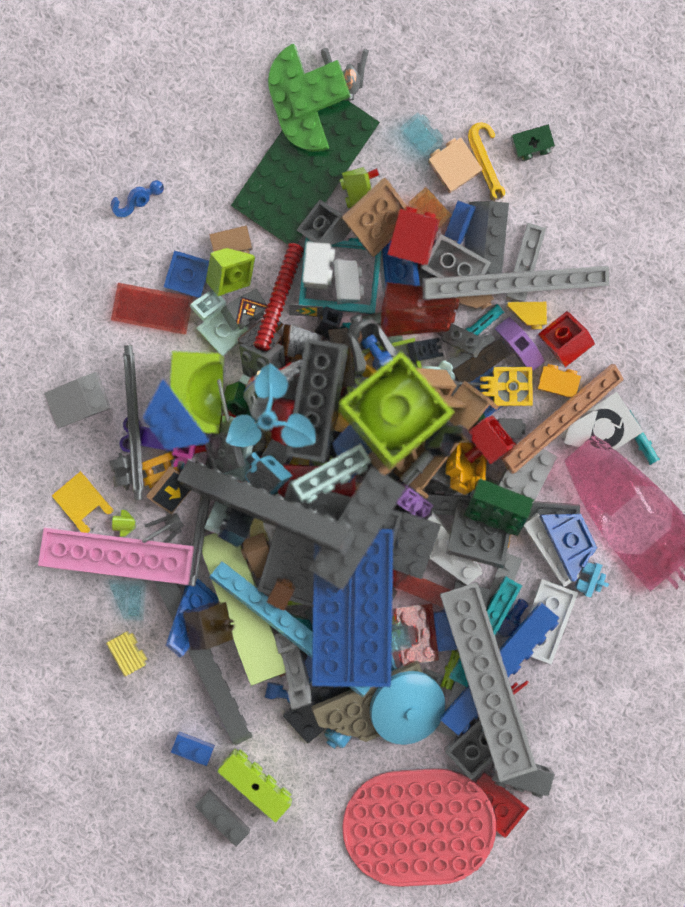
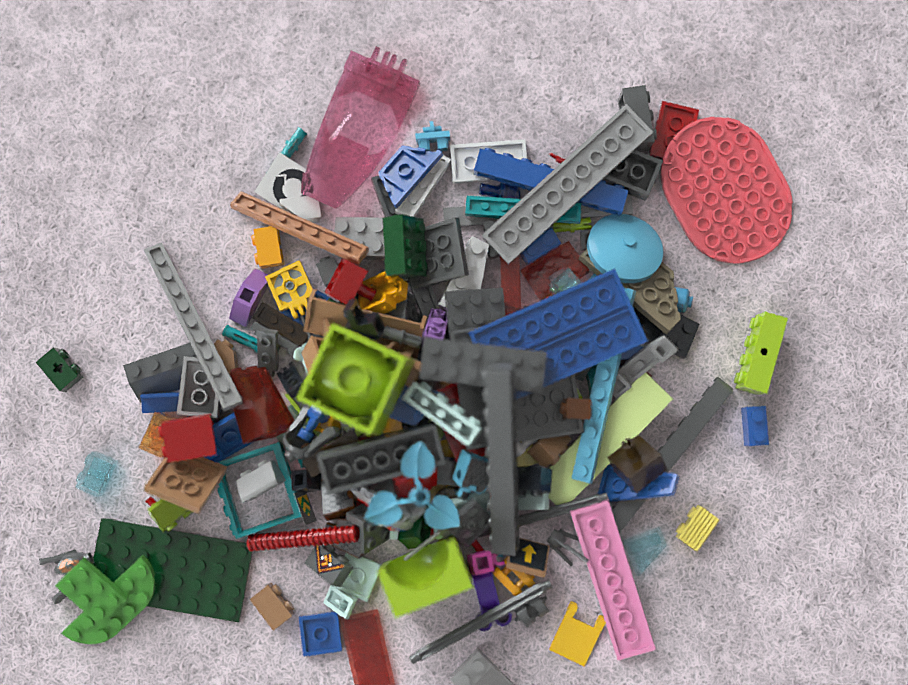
camera: 110 degrees left, 5 degrees down
(123, 523) = (578, 586): lime piece -> none
(172, 421) = (461, 588): blue wing -> none
(222, 817) = (804, 369): dark grey brick -> none
(229, 270) = (298, 595): lime slope -> none
(276, 691) = (666, 374): blue leg -> none
(317, 264) = (254, 514): white brick -> none
(324, 225) = (217, 525): dark grey slope -> none
(454, 164) = (110, 431): light nougat piece -> none
(483, 159) = (96, 406): yellow piece -> none
(528, 254) = (166, 326): light grey plate -> none
(530, 313) = (217, 301): yellow slope -> none
(566, 338) = (226, 257): red slope -> none

